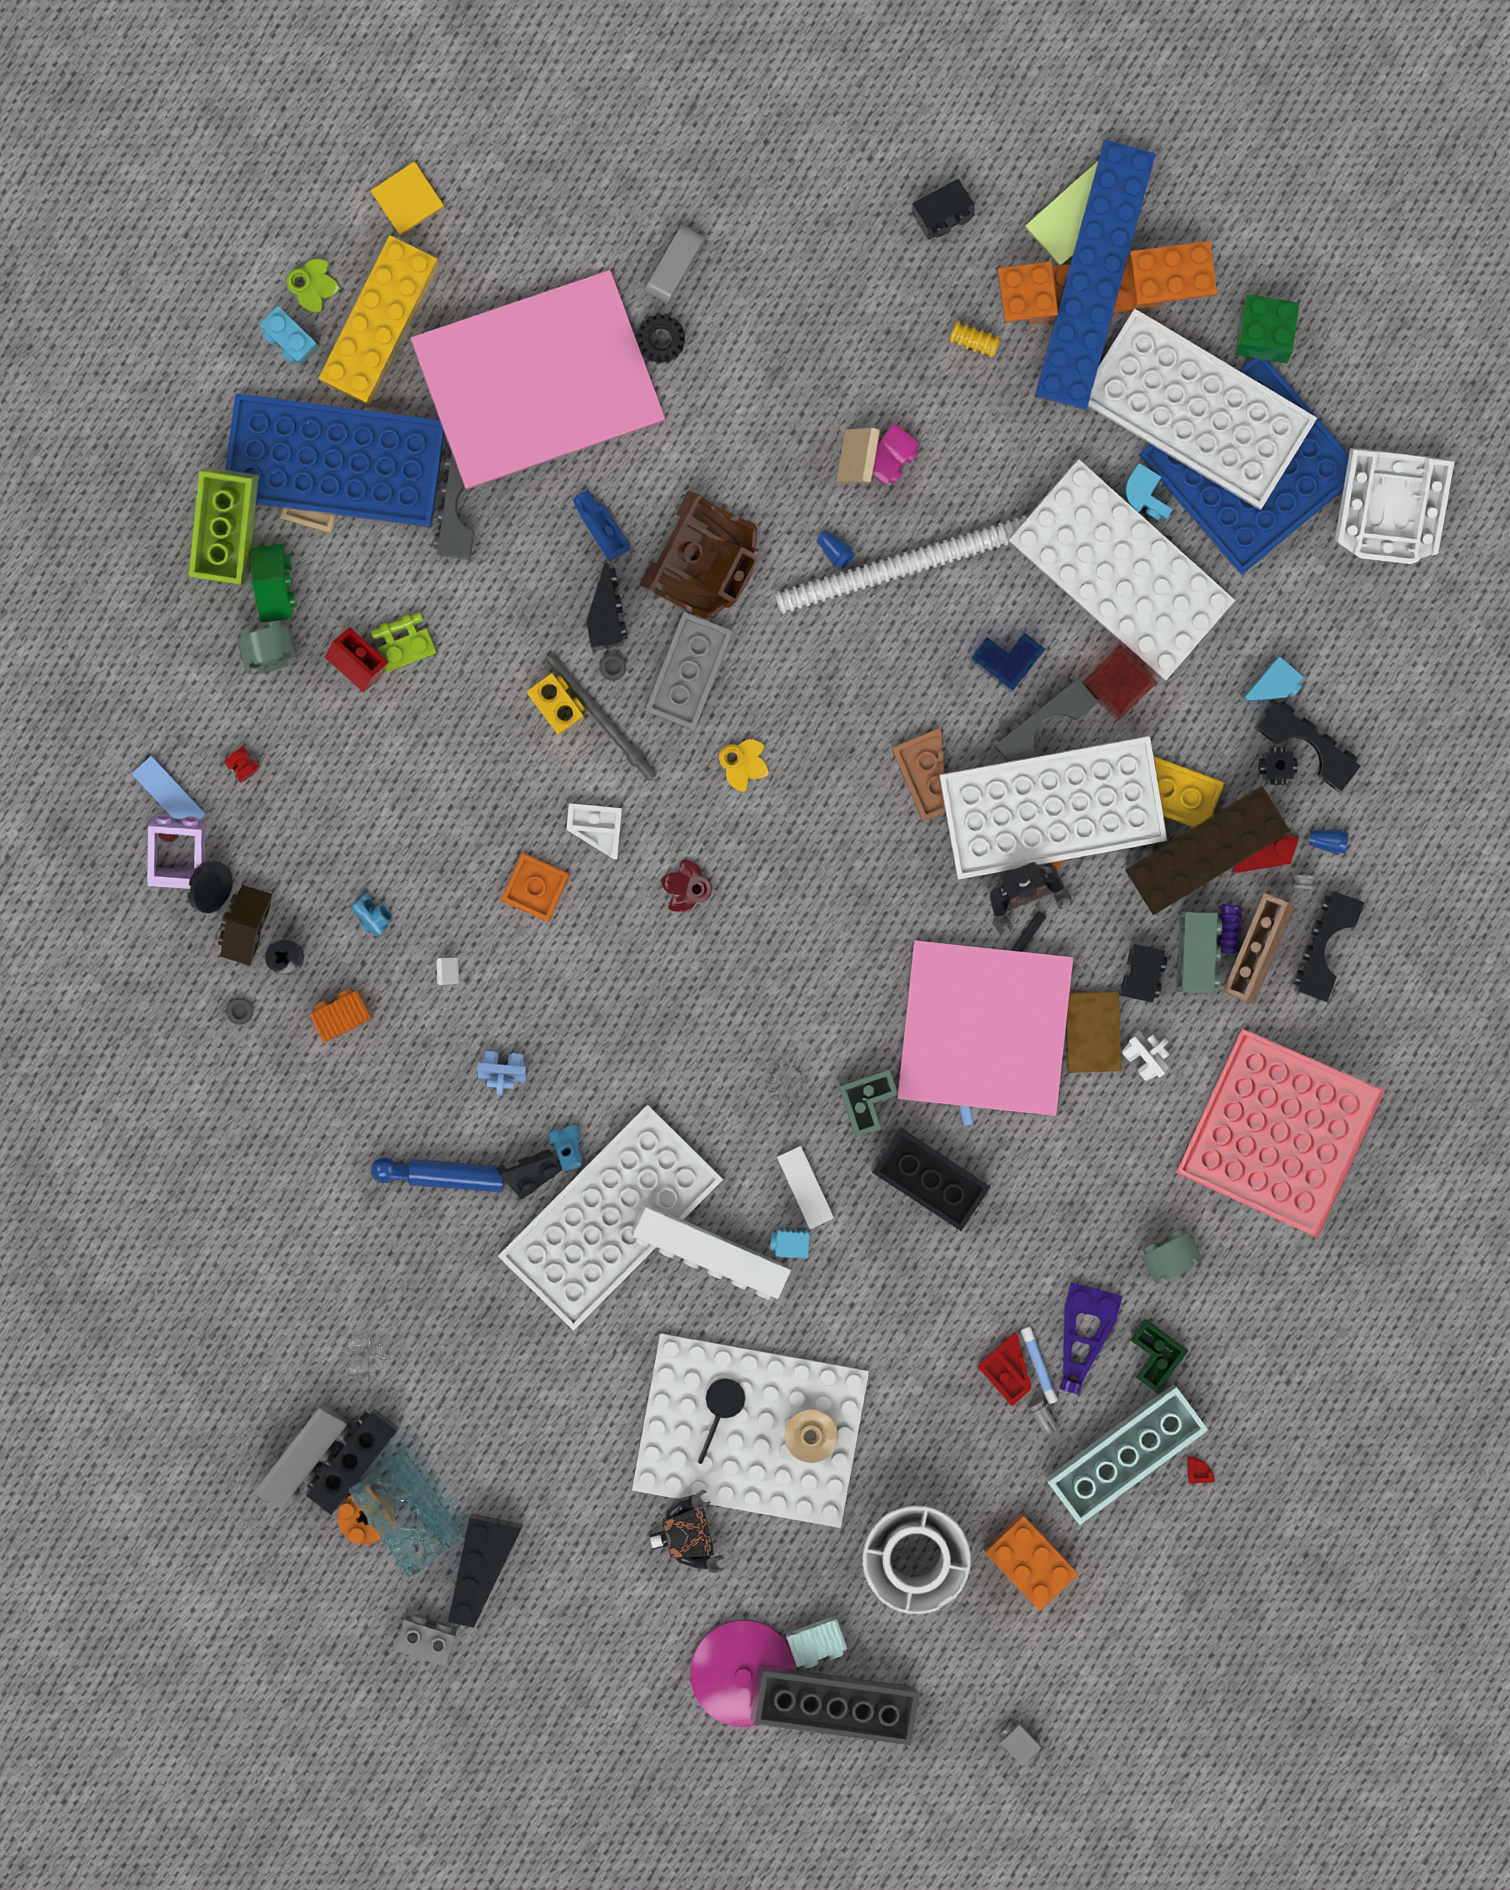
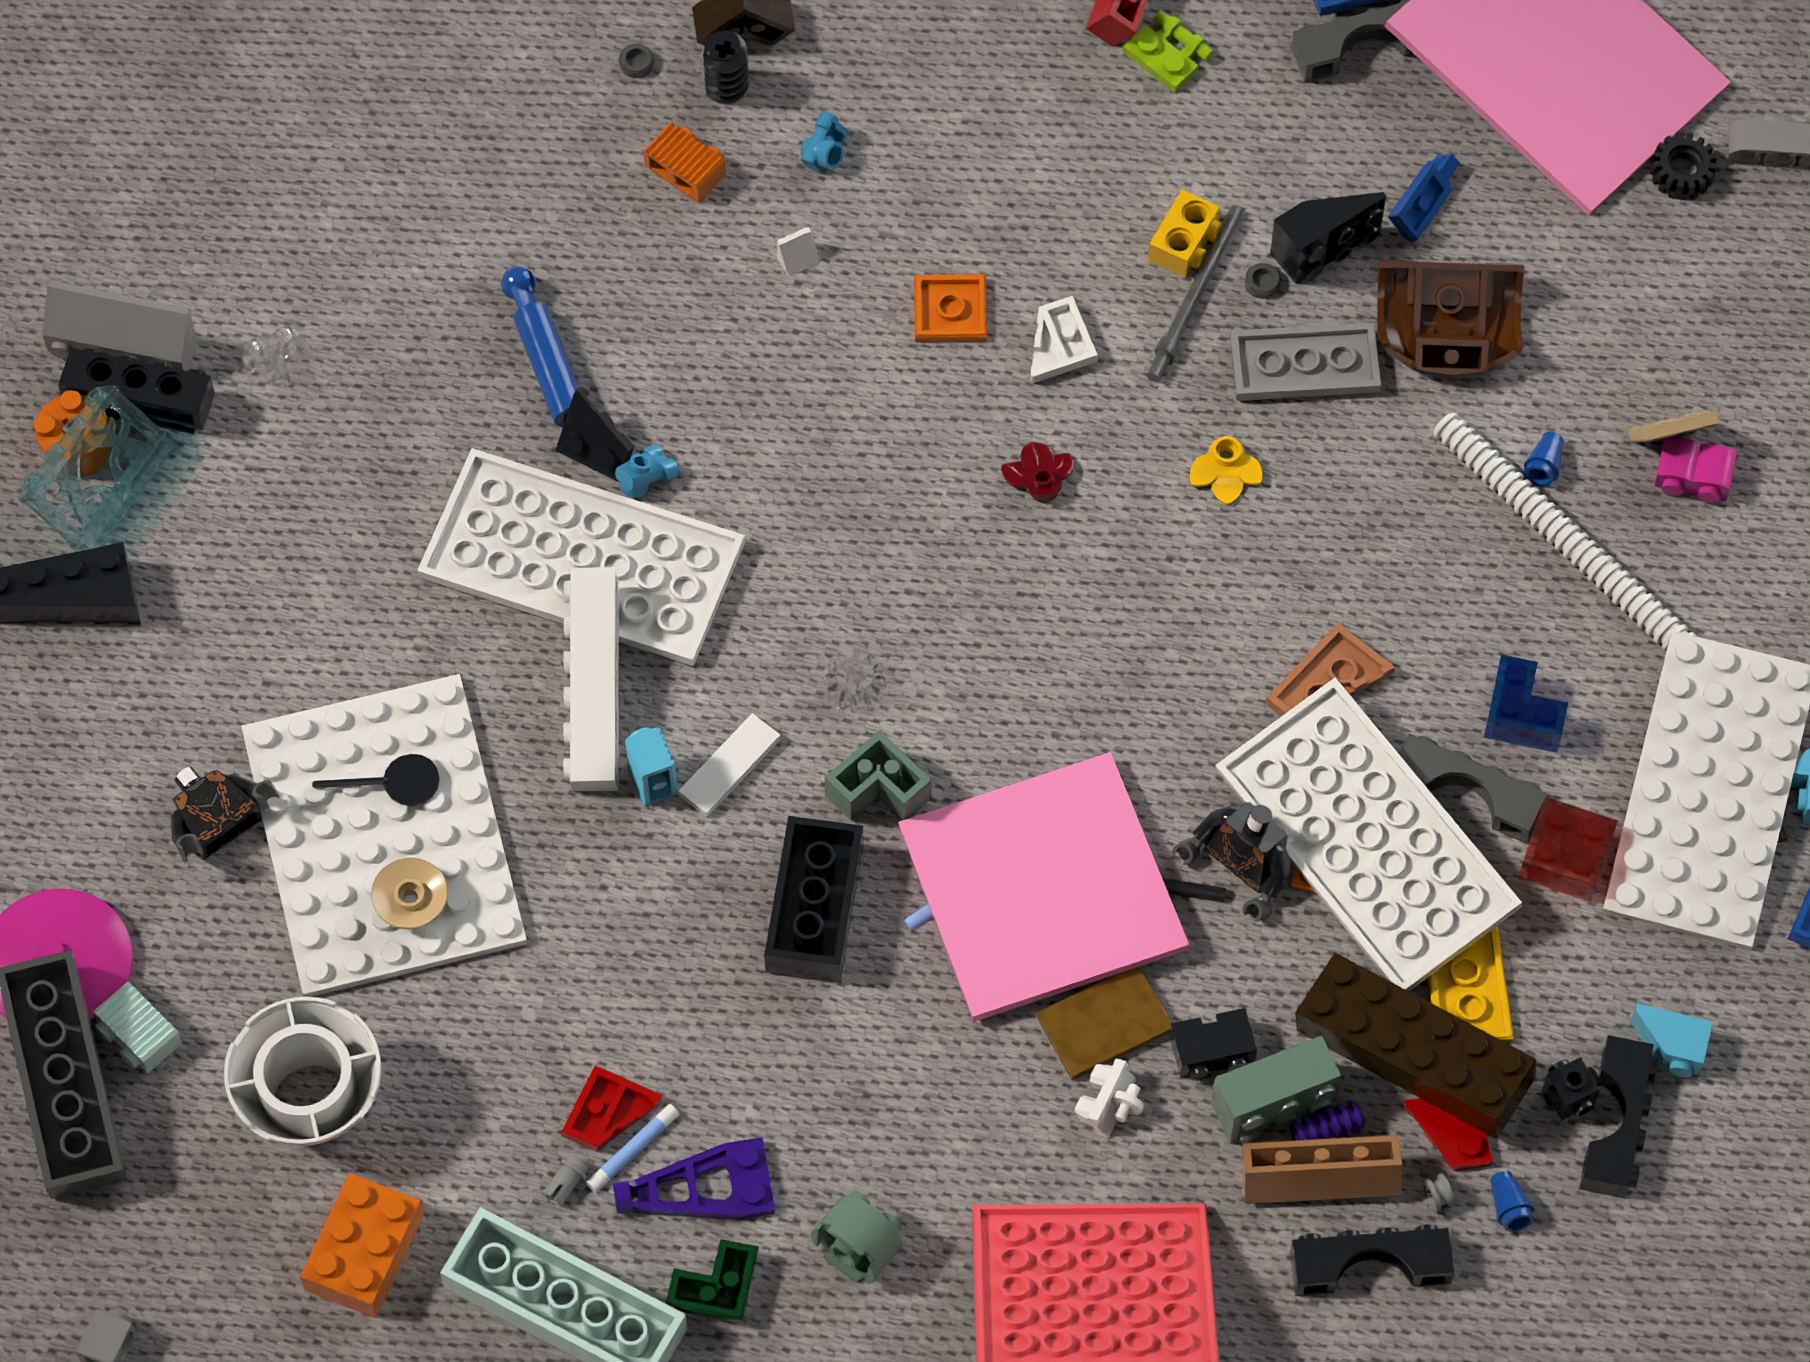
camera: 60 degrees right, 25 degrees down
(501, 1075) = (700, 361): light blue hips -> none

